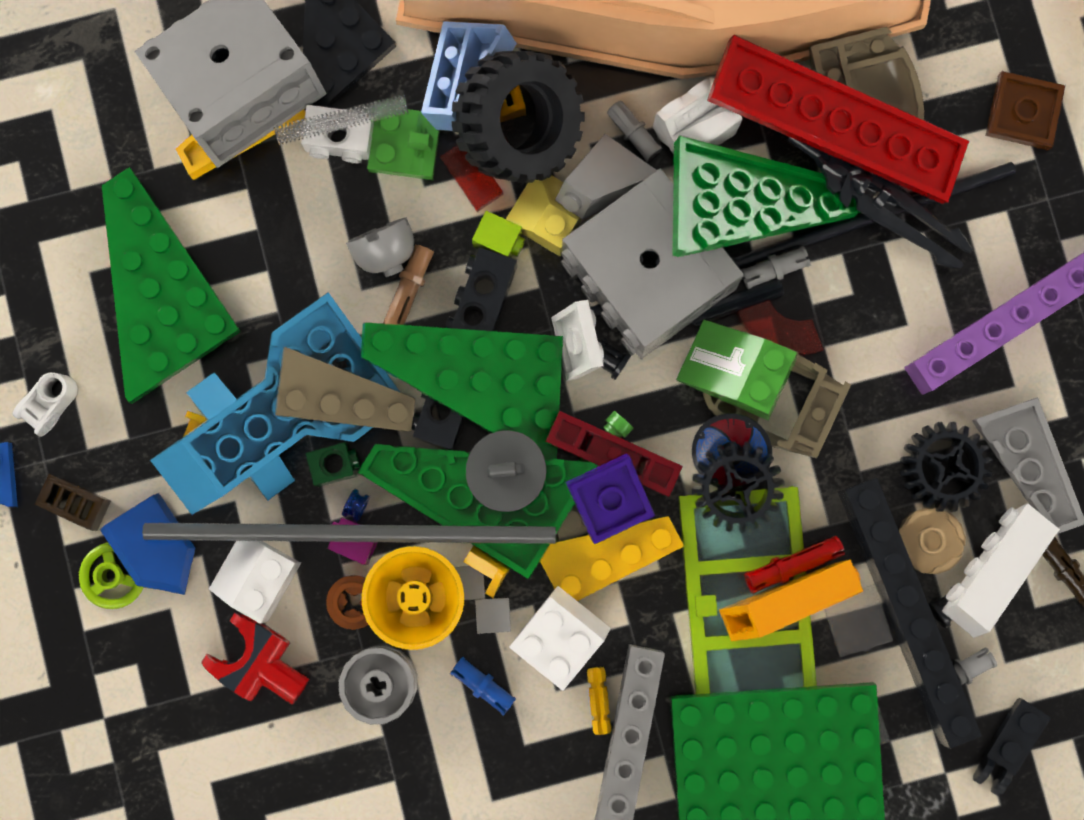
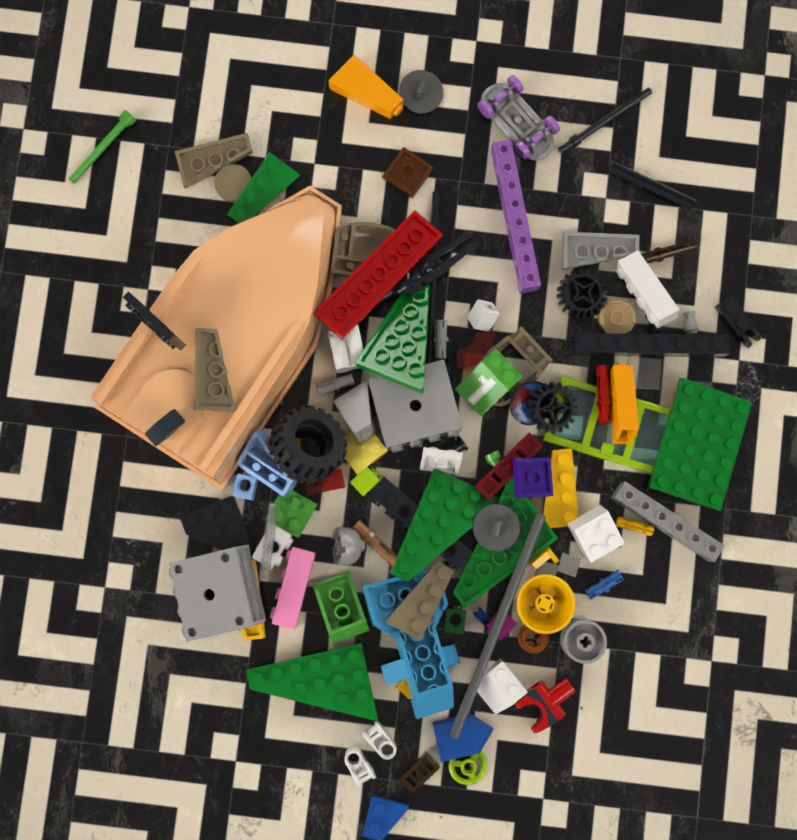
camera: 70 degrees left, 0 degrees up
(100, 419) = (380, 739): none -> white piece
(282, 276) = (340, 607): none -> bright green slope
(286, 190) = (293, 588): none -> bright pink brick
(405, 45) = (239, 492): none -> light blue brick
(843, 320) = (483, 315): none -> white panel

